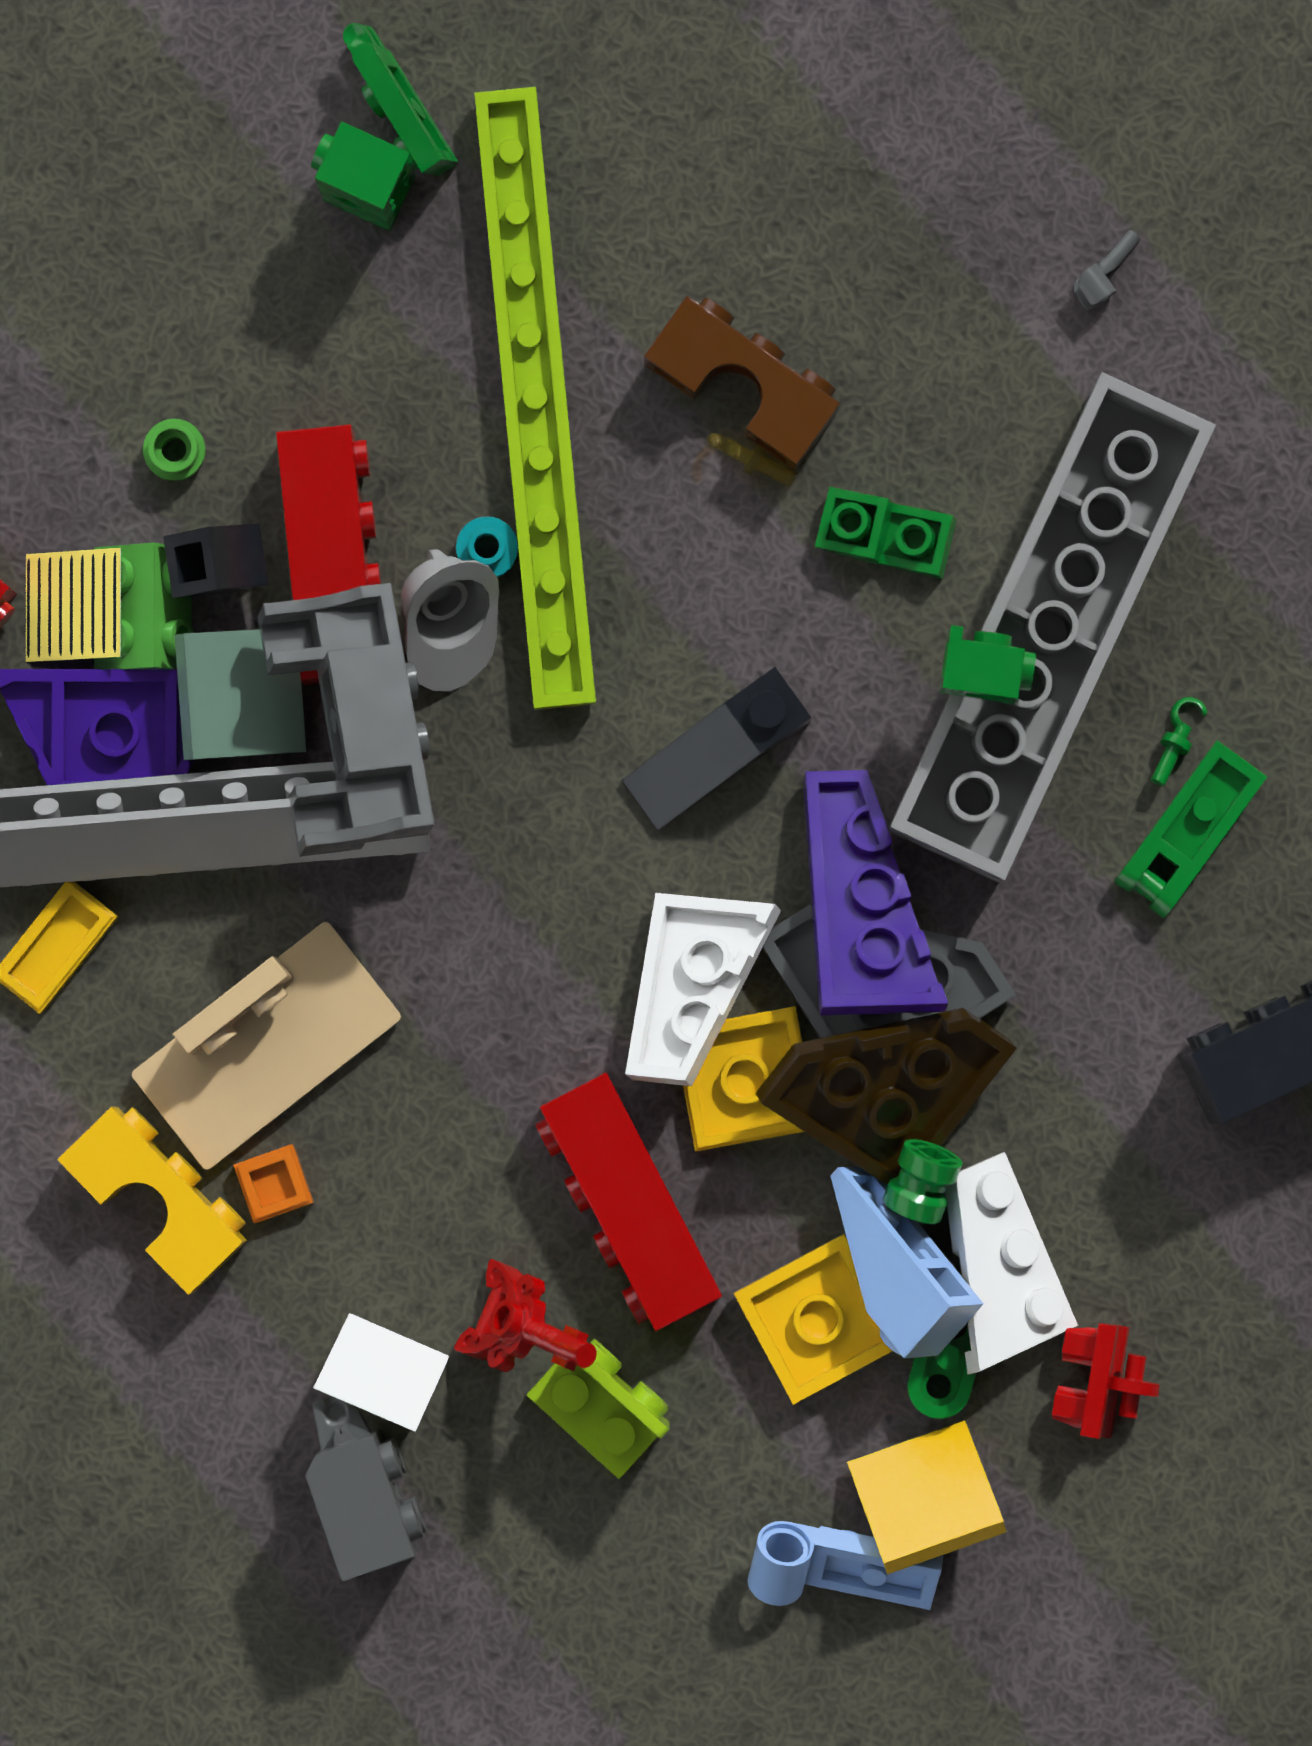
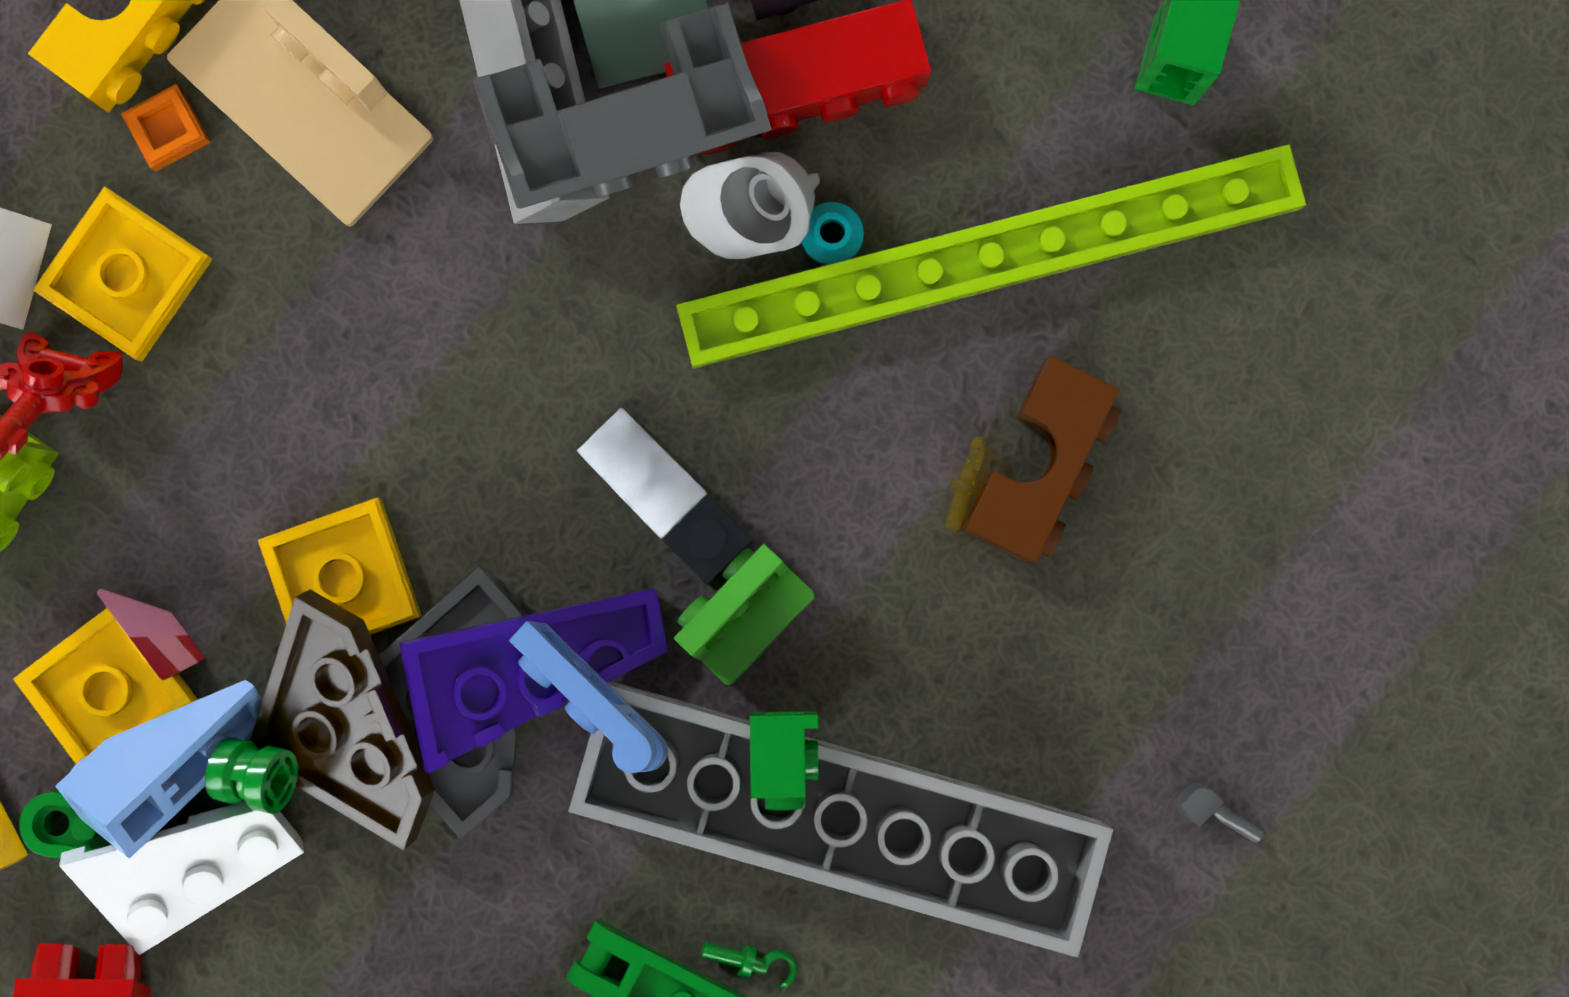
camera: 80 degrees right, 0 degrees up
(393, 96) = (1268, 68): green hinge -> none
(412, 1247) = (122, 274): none -> yellow tile
(629, 1201) = (192, 481): red brick -> none
(690, 979) = (422, 506): white wing -> none
(771, 1262) = (155, 634): none -> clear pink sticker
(846, 688) = (744, 614): none -> bright green bracket
(885, 532) = (913, 631): green slope -> none
(903, 837) = (591, 699): none -> medium blue plate

